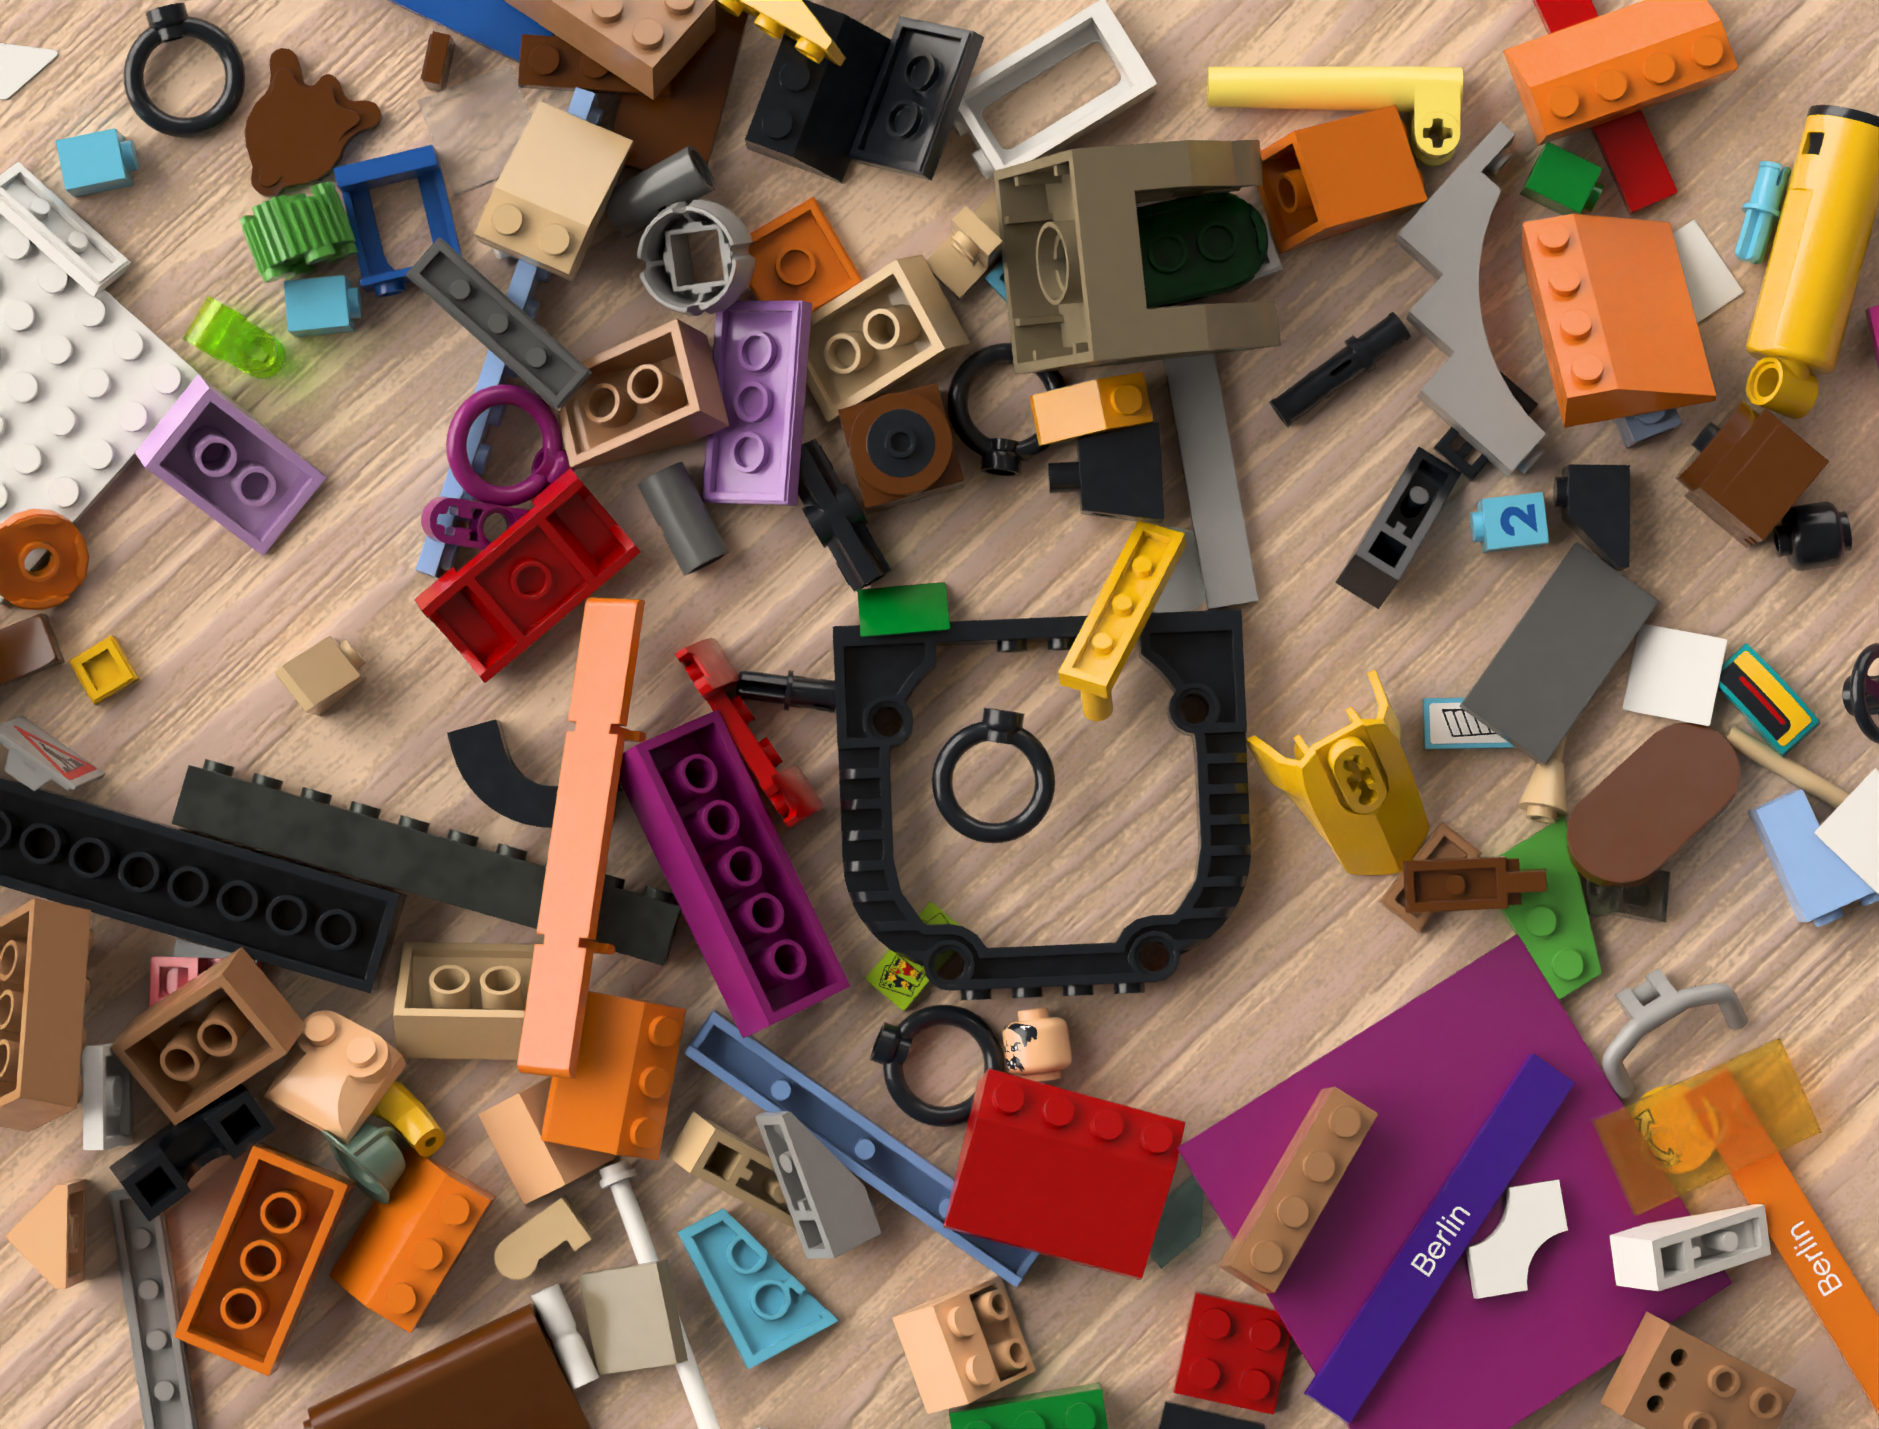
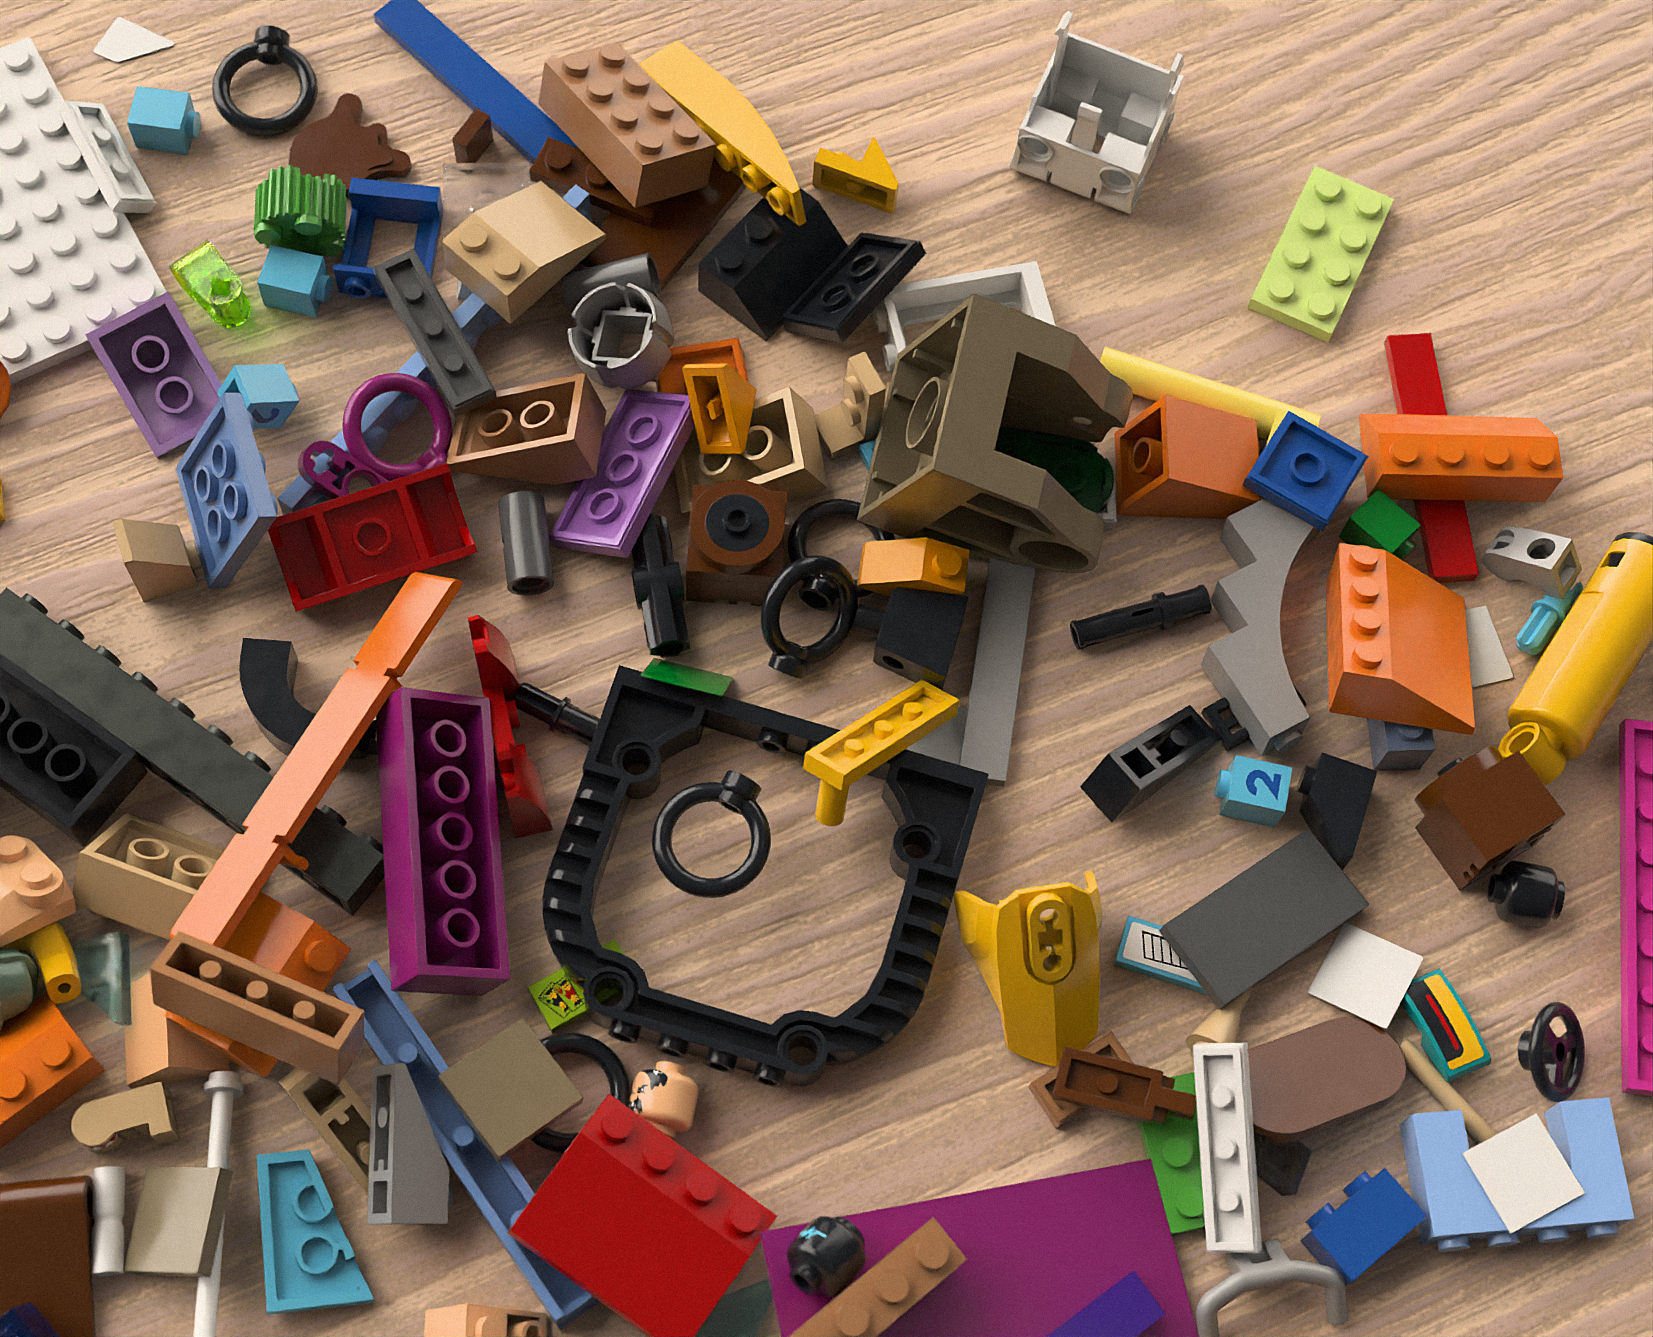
camera: 10 degrees right, 20 degrees down
(343, 458) = (265, 392): none -> medium azure brick
(365, 586) = (226, 490): none -> medium blue plate
(460, 1111) = (106, 974): none -> clear light blue tile
(635, 1113) = (257, 1007): none -> medium nougat brick
(833, 309) = (720, 407): none -> light orange slope
(892, 1092) = (510, 1089): none -> dark tan tile
(998, 545) = (790, 656): none -> black piece
(1247, 1153) = (826, 1256): none -> black head
(1465, 153) = (1305, 470): none -> blue tile
(1587, 908) = (1227, 1148): none -> white tile
(1731, 160) = (1534, 558): none -> light grey leg
(1736, 930) = (1363, 1225): none -> blue brick

